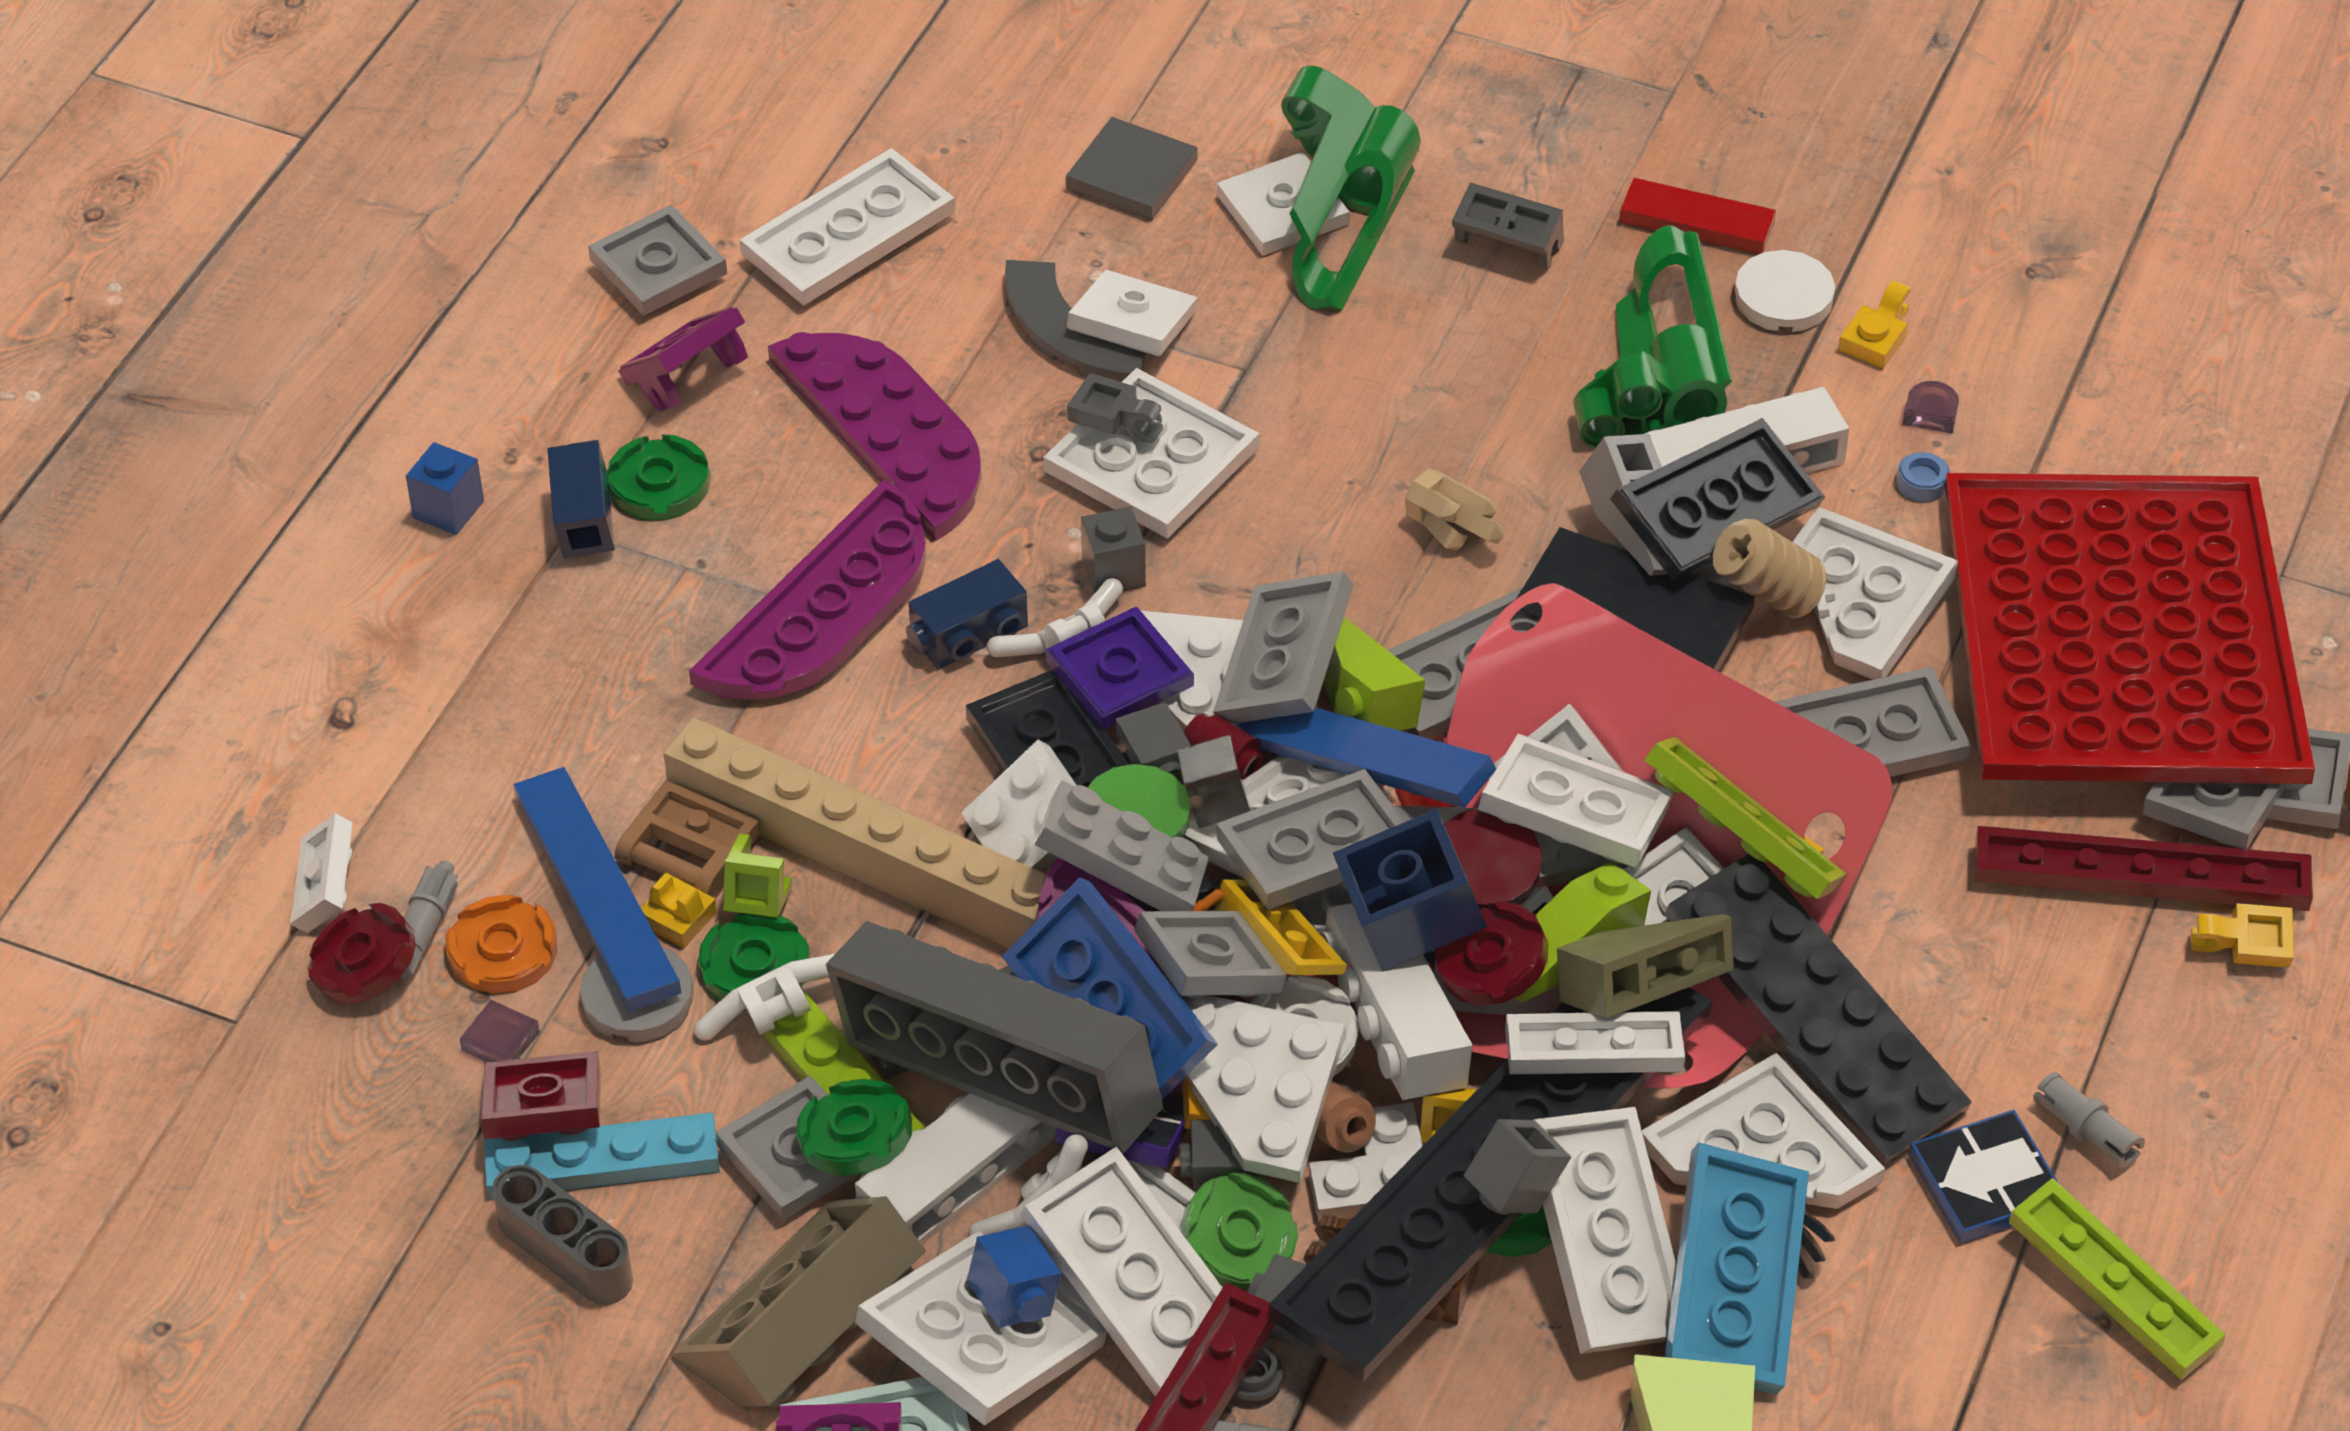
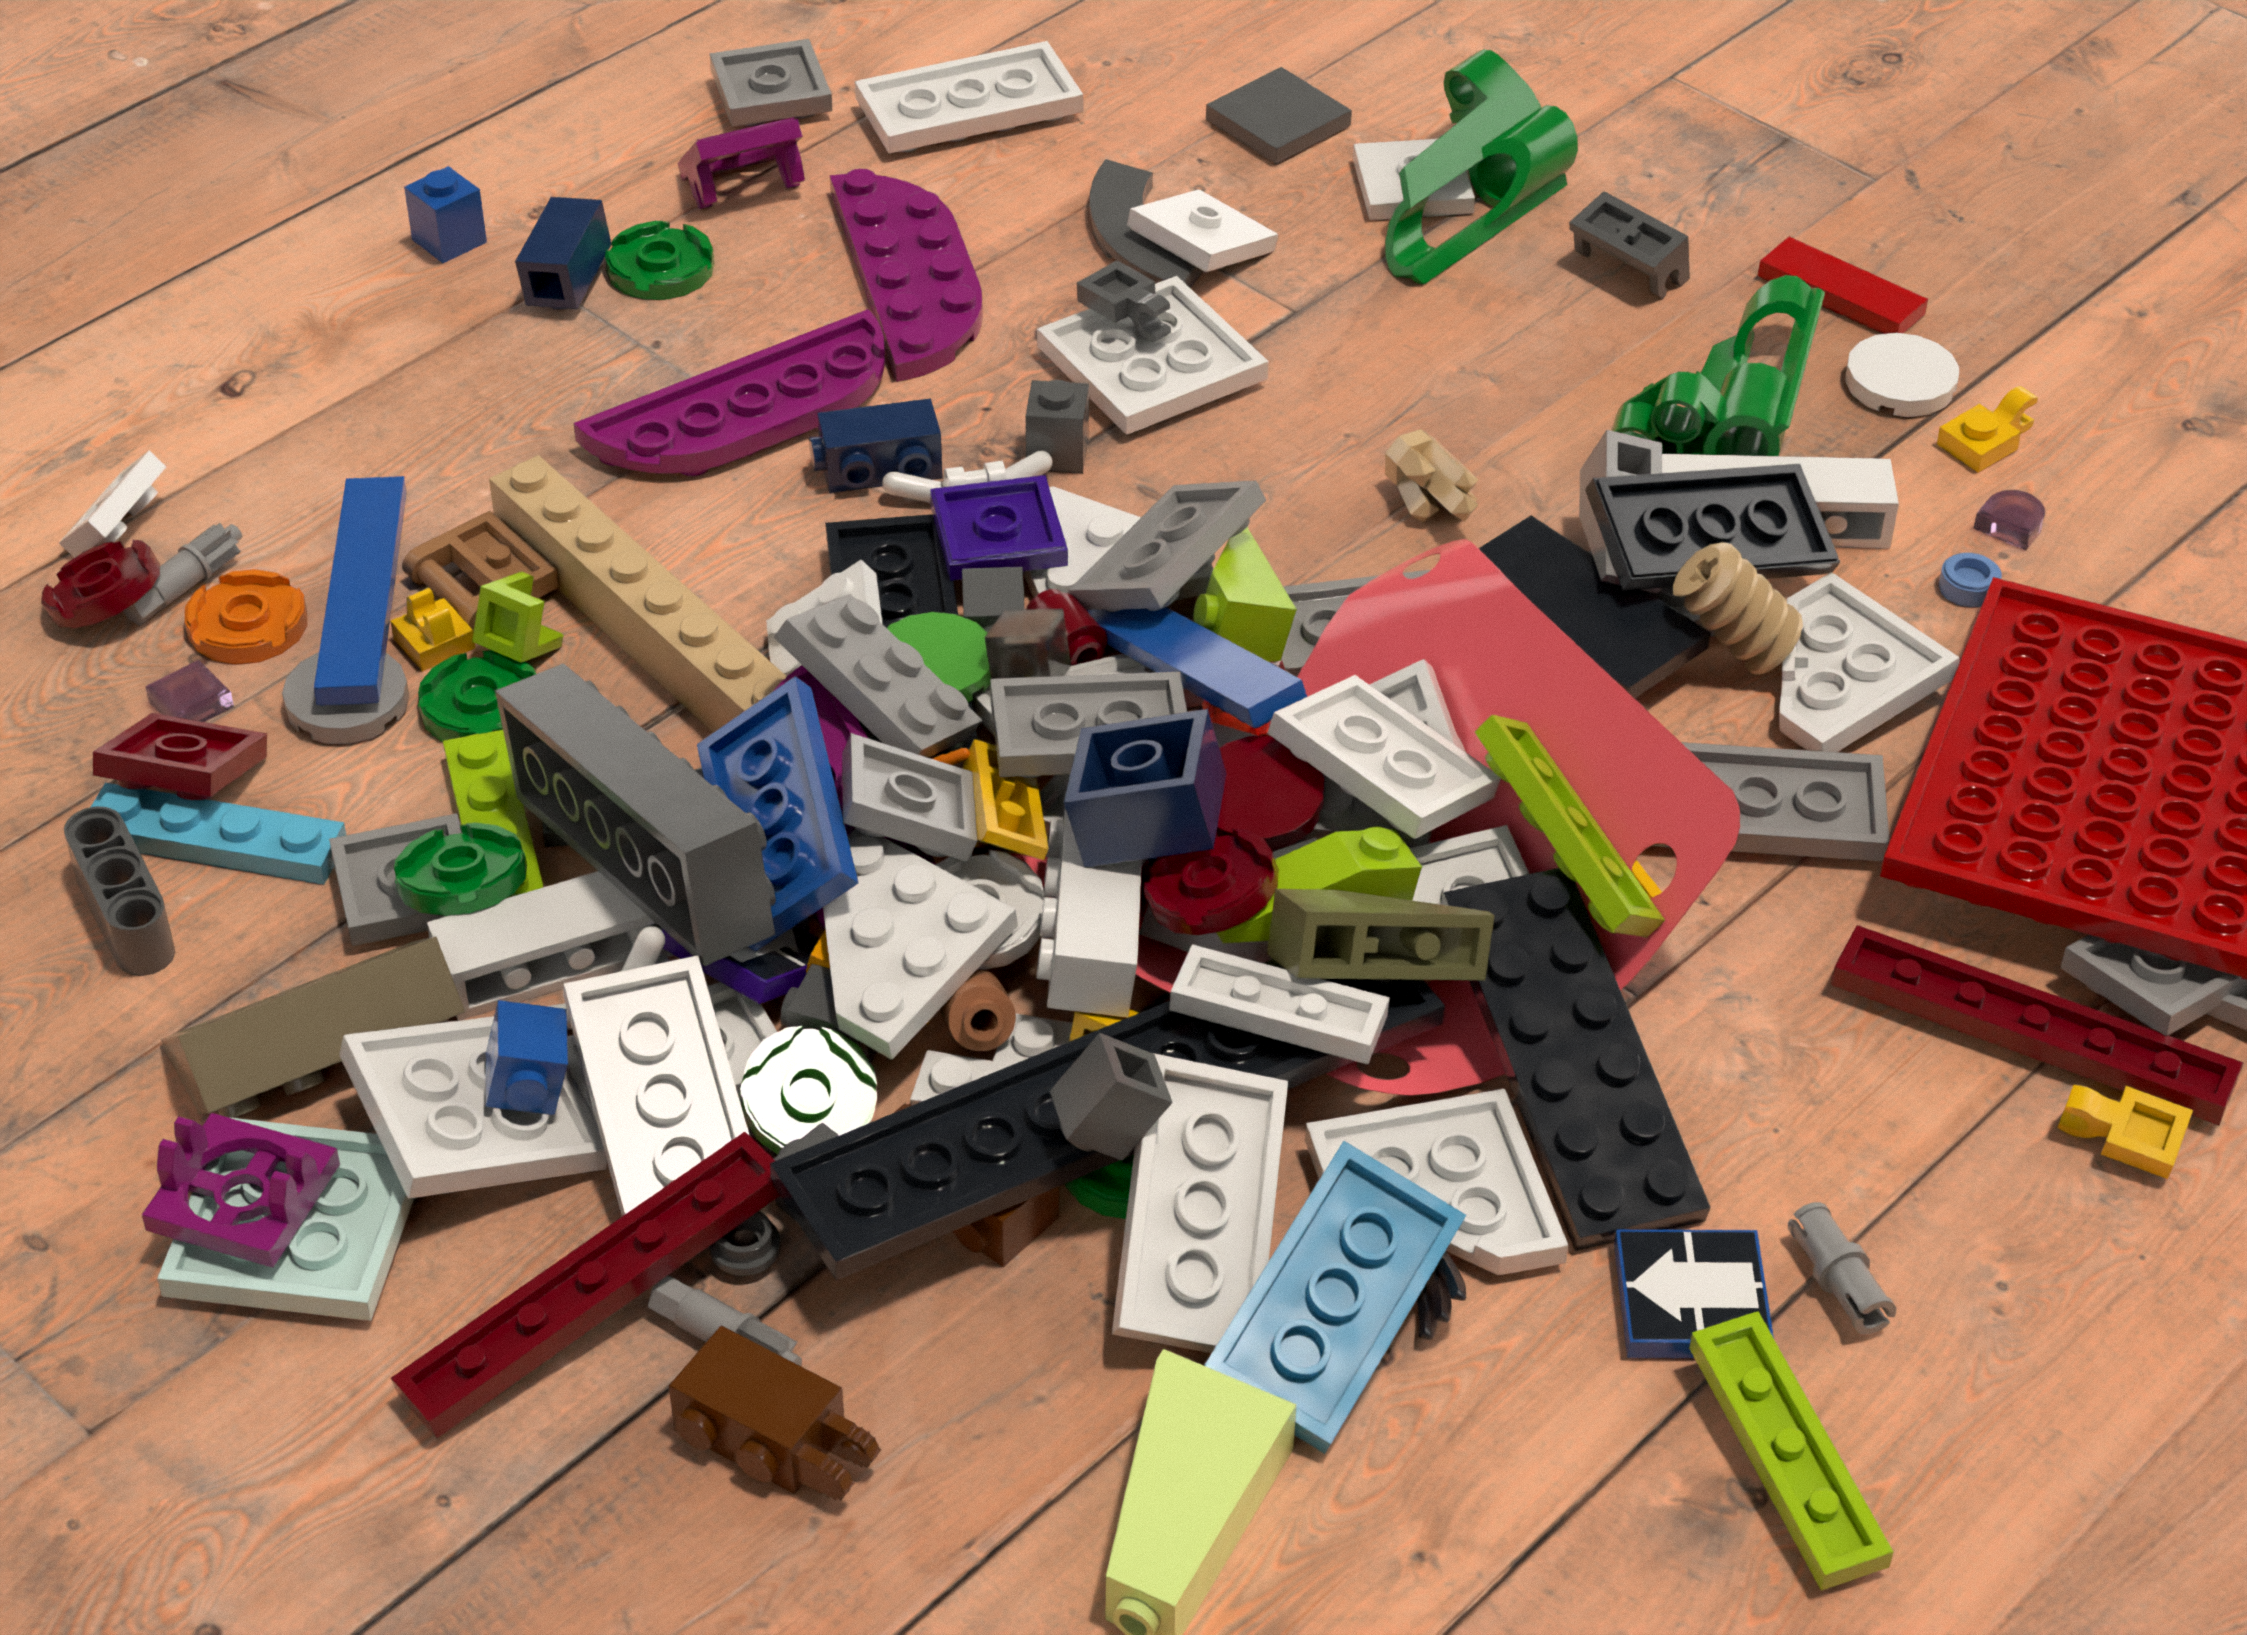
camera: 20 degrees right, 5 degrees down
(765, 998) = (446, 732): white piece -> none

